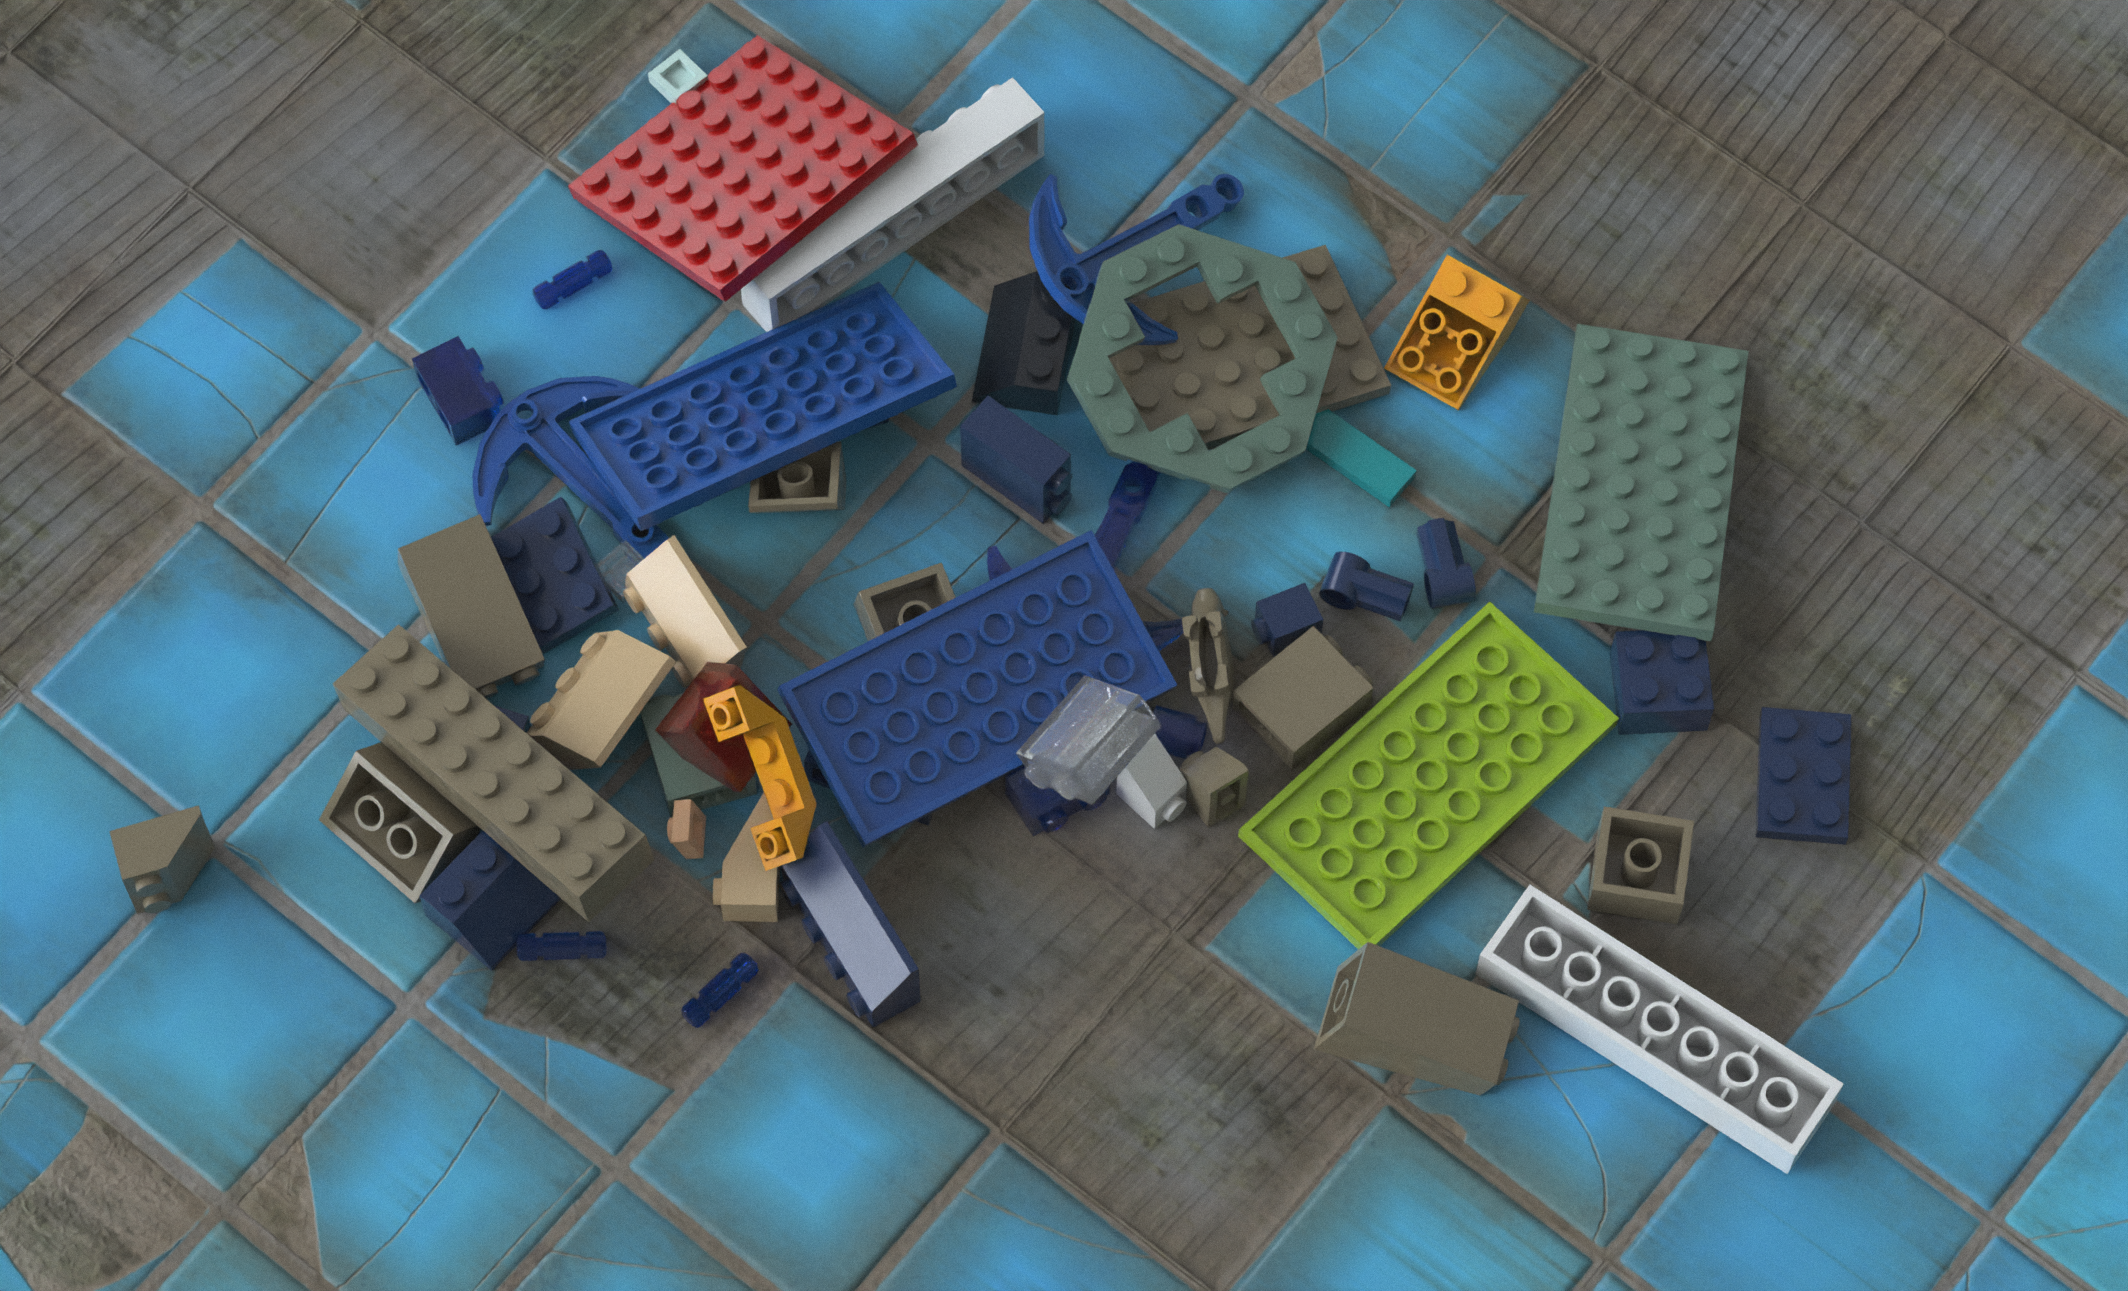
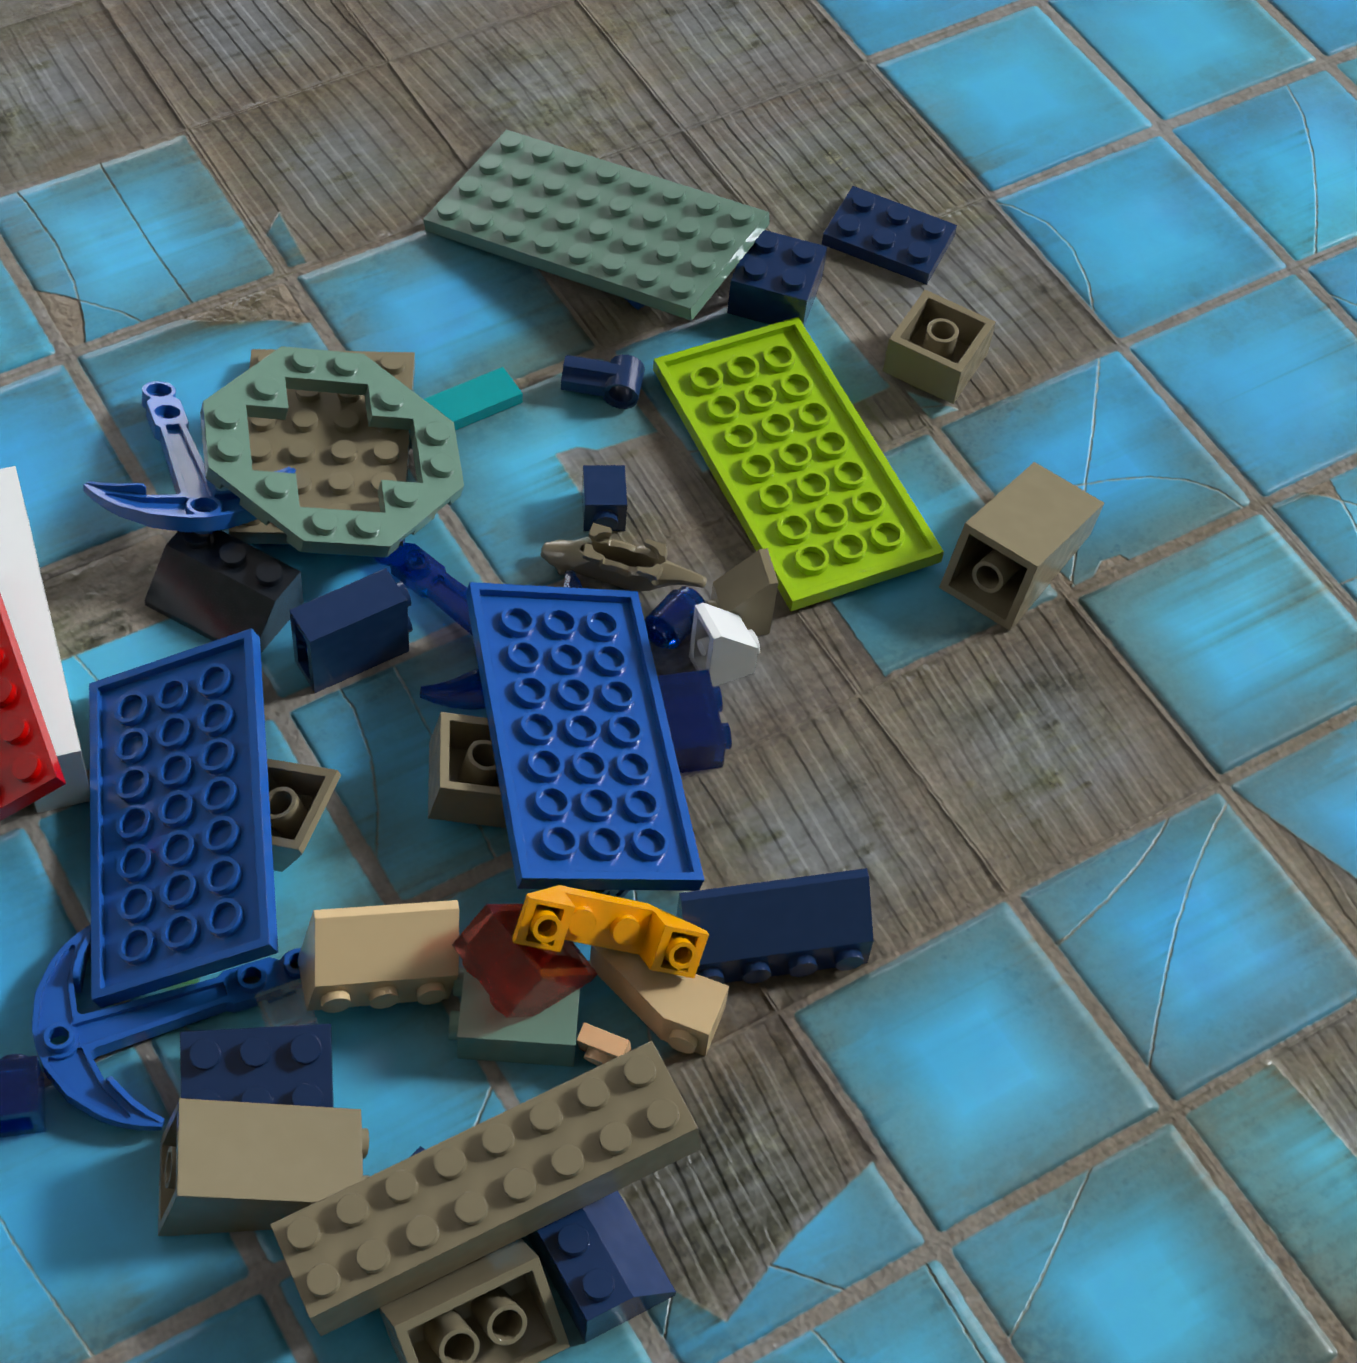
camera: 75 degrees left, 10 degrees down
(561, 946) = (679, 1212): clear blue axle -> none
(599, 699) = (435, 1064): tan slope -> none
(719, 990) = (784, 1079): clear blue axle -> none
(1088, 740) = (686, 654): clear brick -> none
(1303, 697) = (686, 511): dark tan brick -> none
(1353, 583) = (599, 436): dark blue piece -> none
(1456, 332) = (386, 290): light orange slope -> none
(1658, 1029) = (1083, 388): white brick -> none

